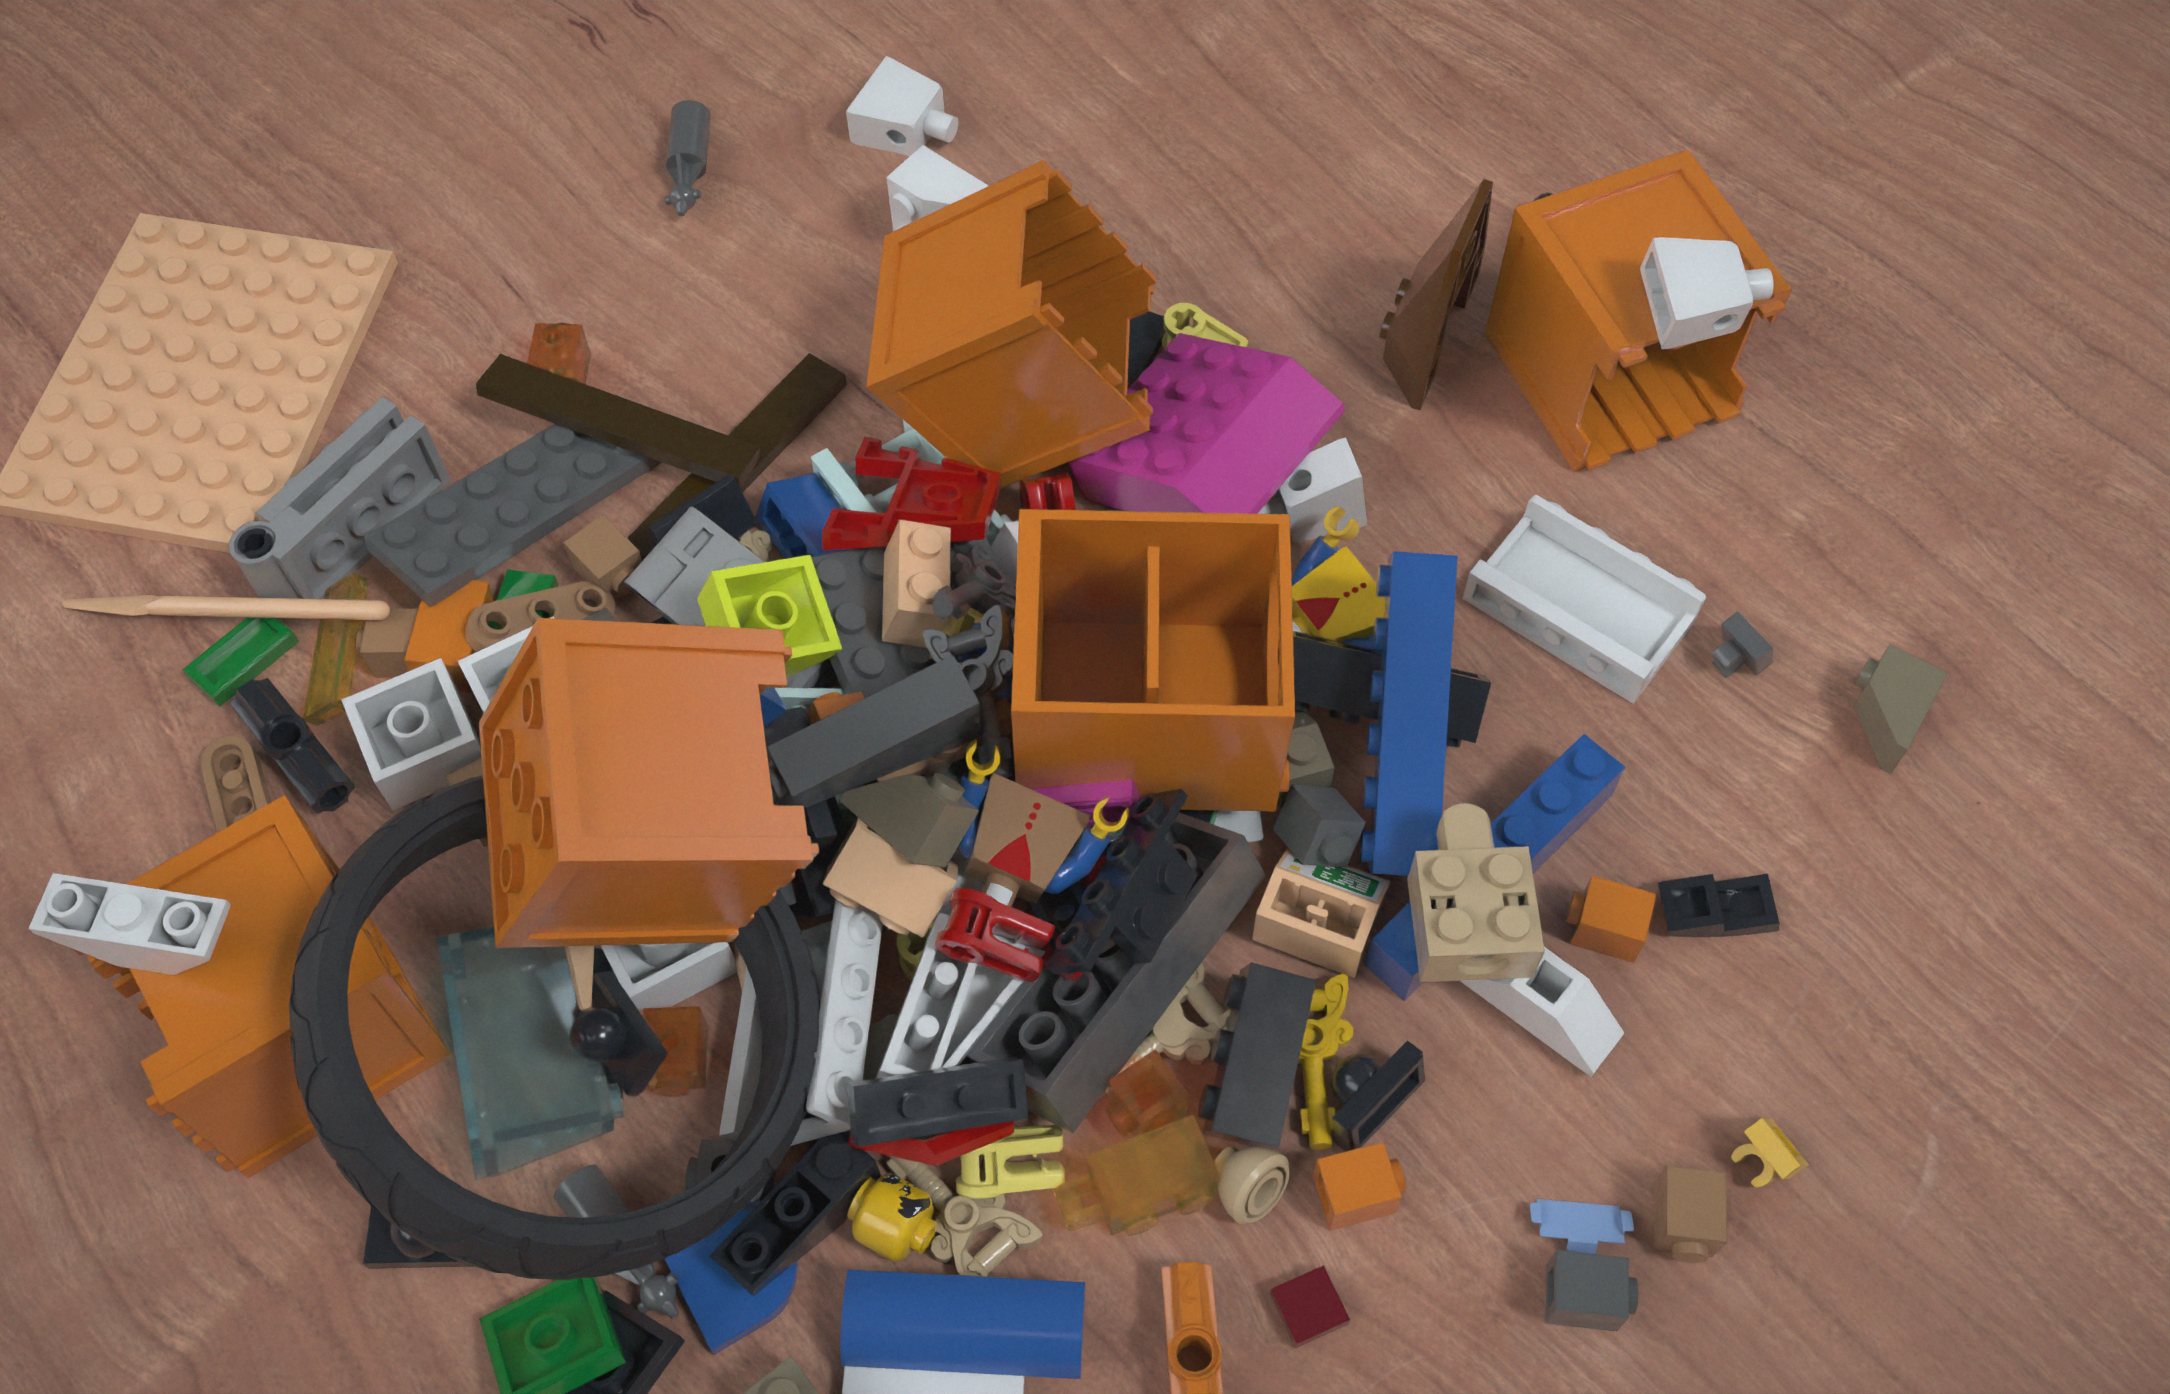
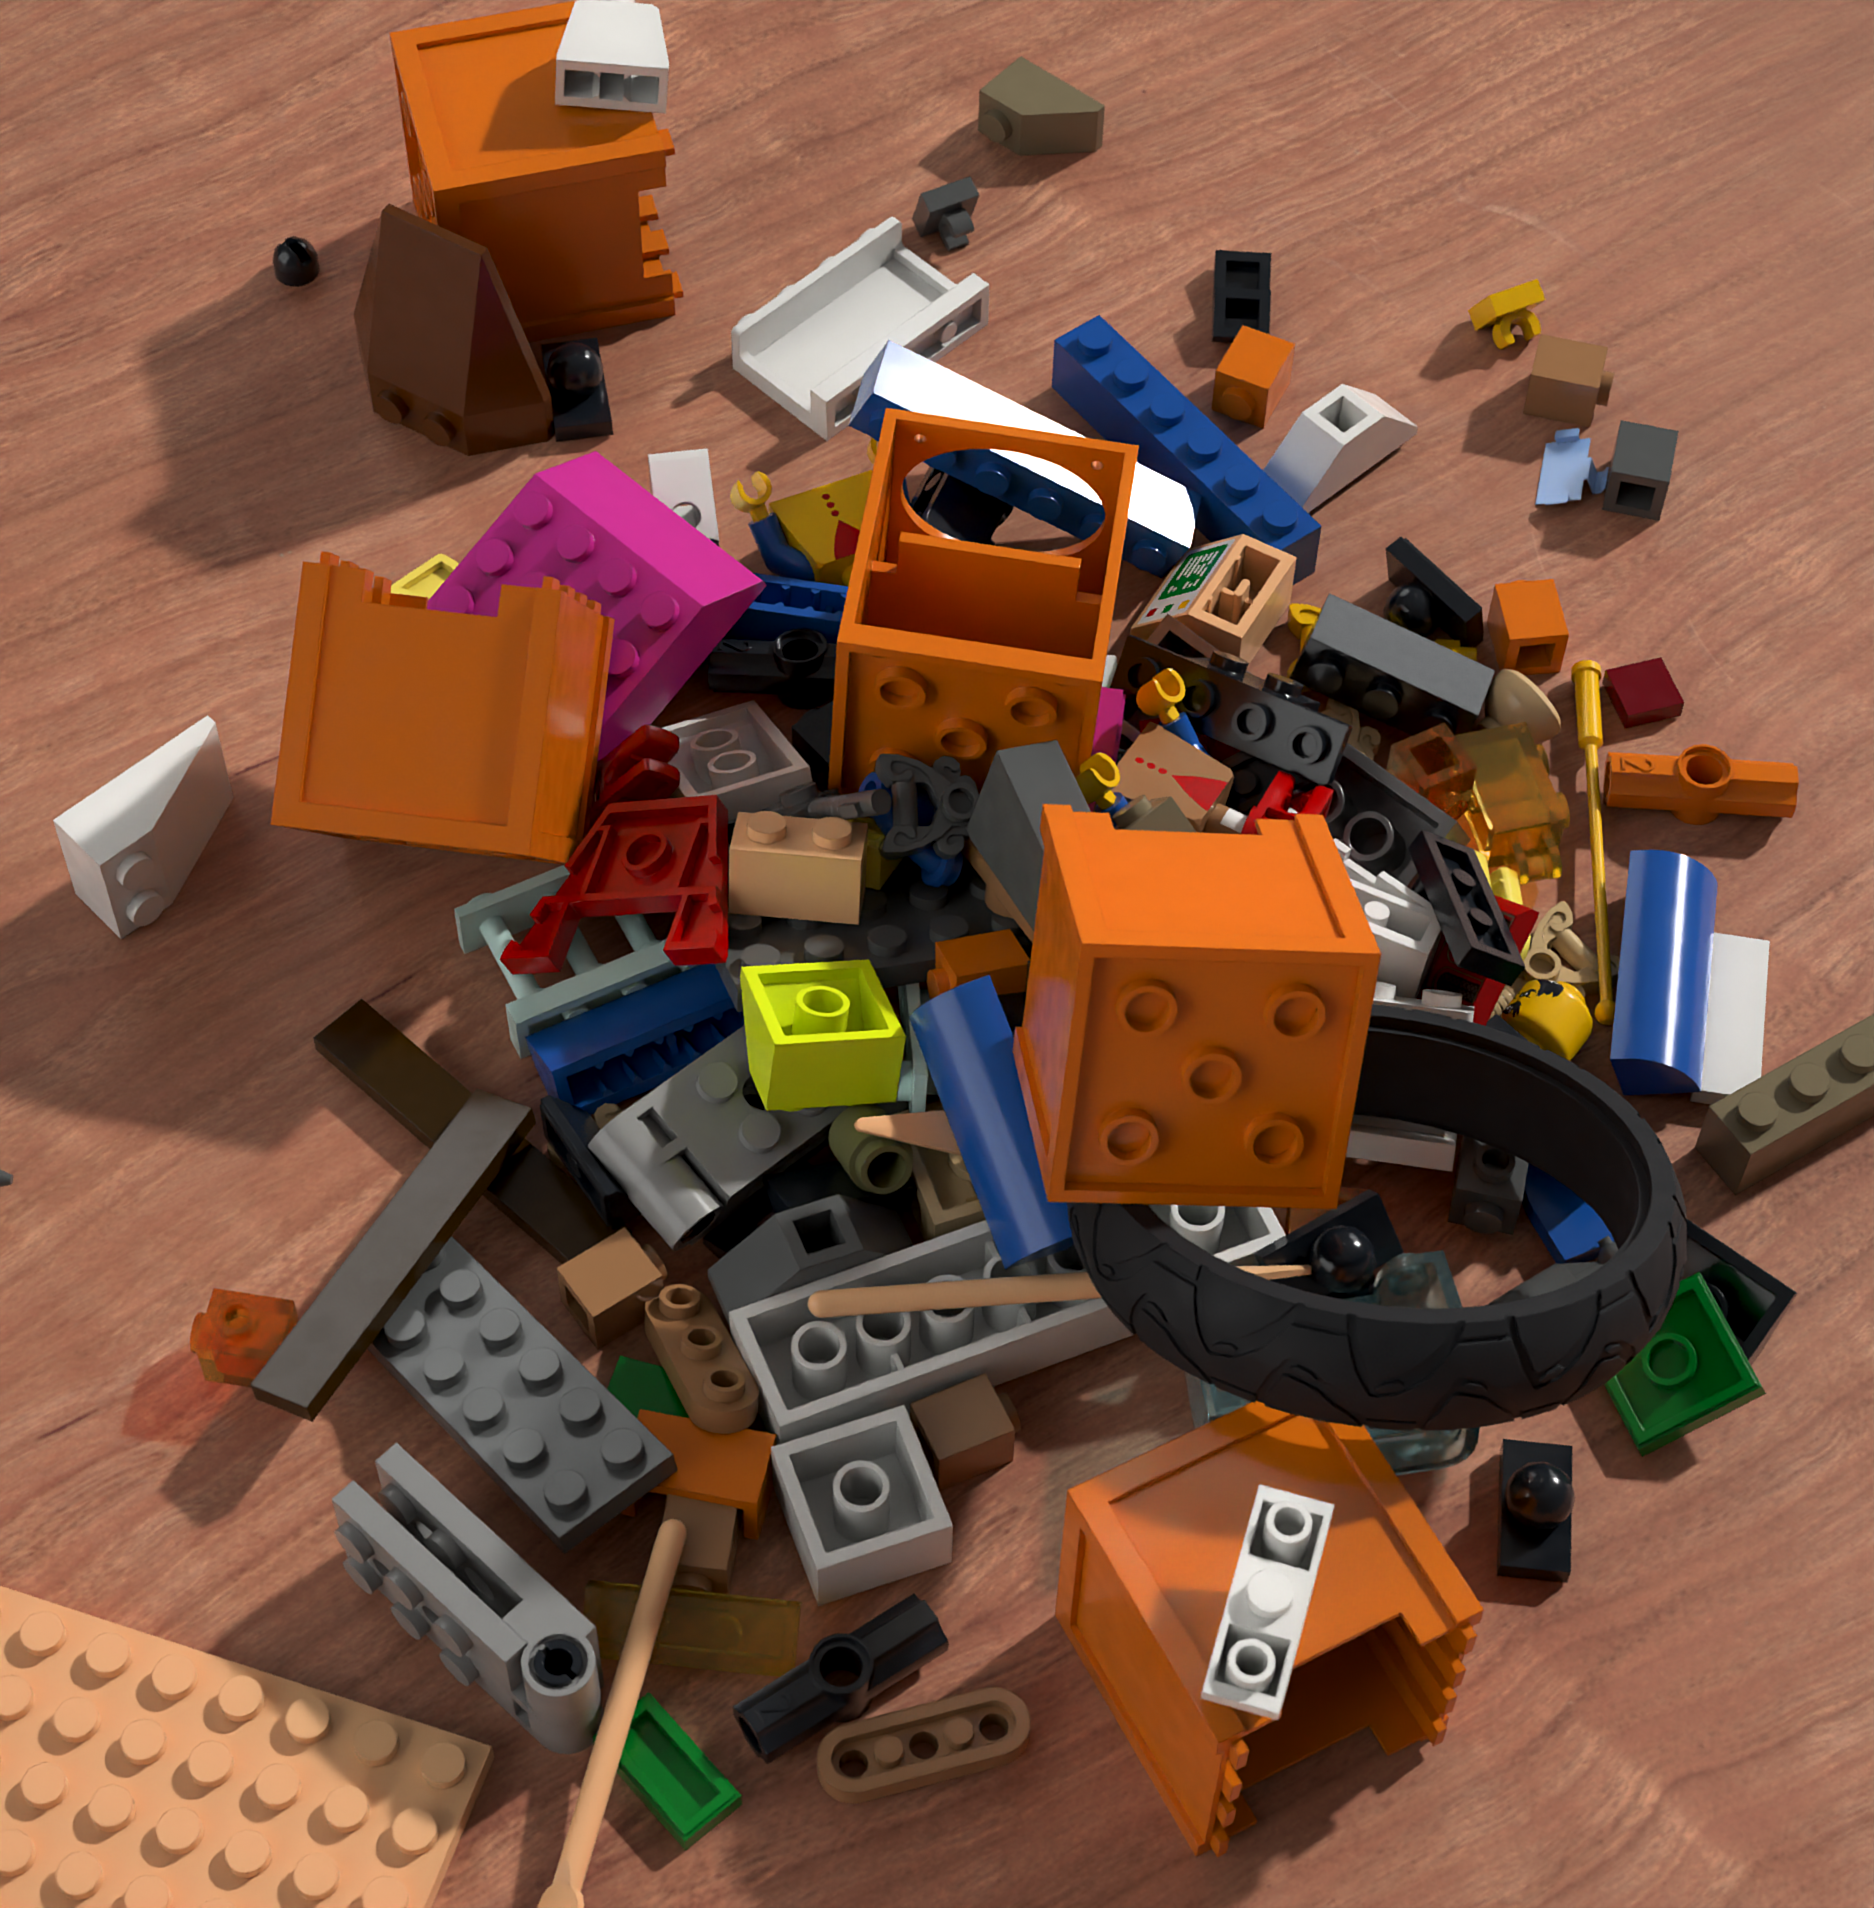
camera: 85 degrees left, 5 degrees down
(1238, 1255) = (1586, 677): none -> yellow piece
(1319, 826) = (1141, 586): dark grey brick -> none
(1464, 411) = (577, 389): none -> black tile
(1481, 900) = (1271, 439): tan brick -> none

